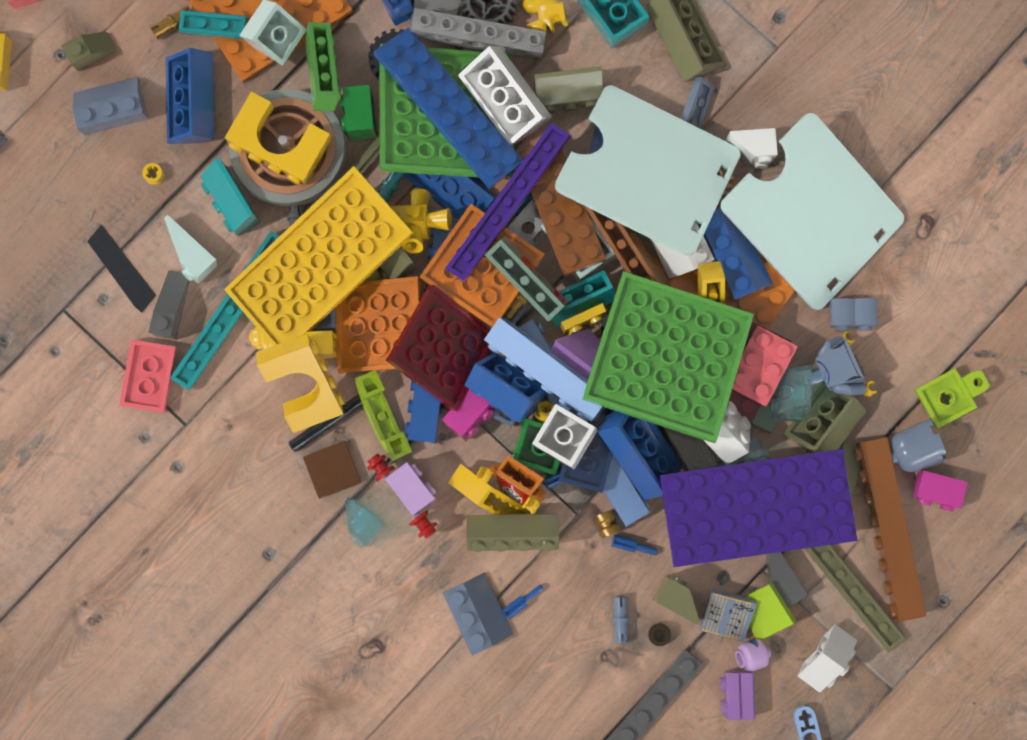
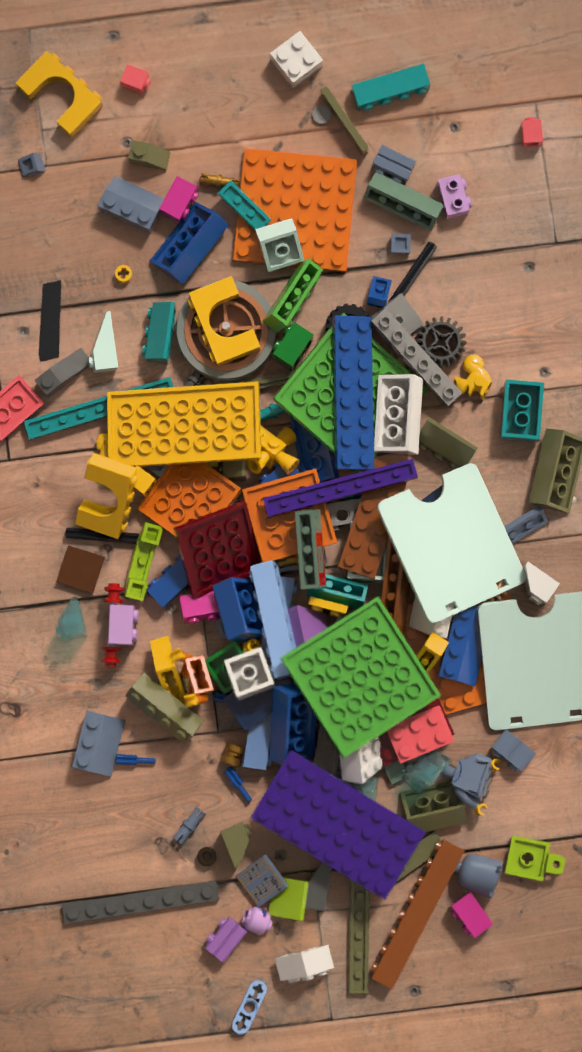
camera: 35 degrees right, 0 degrees up
(148, 66) = (179, 199): none -> dark pink brick

